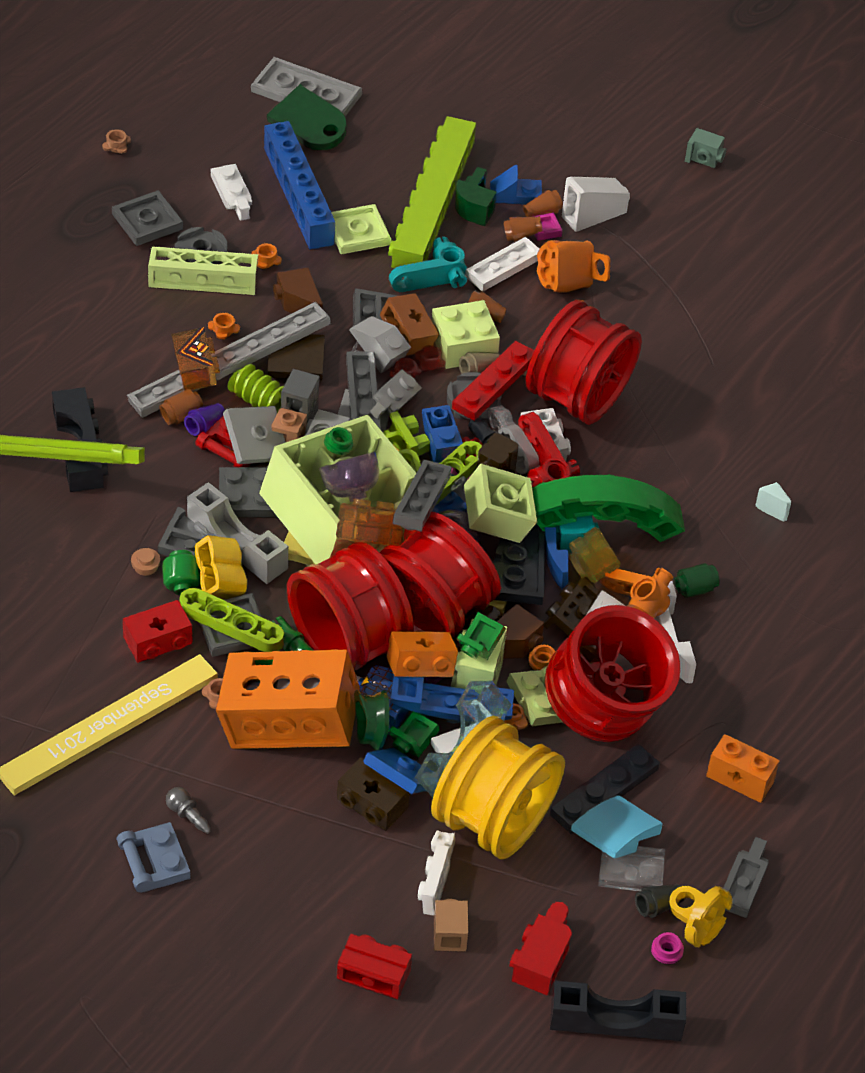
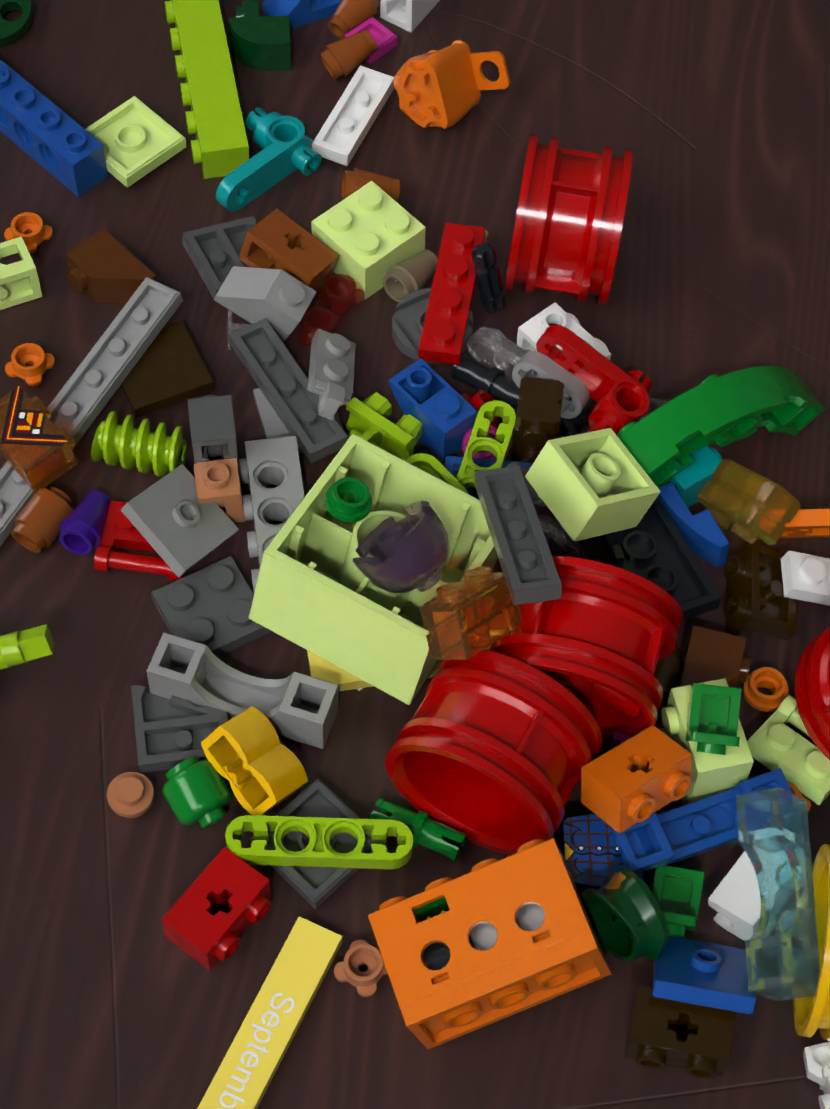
camera: 25 degrees left, 10 degrees up
(520, 367) = (488, 277): none -> black axle

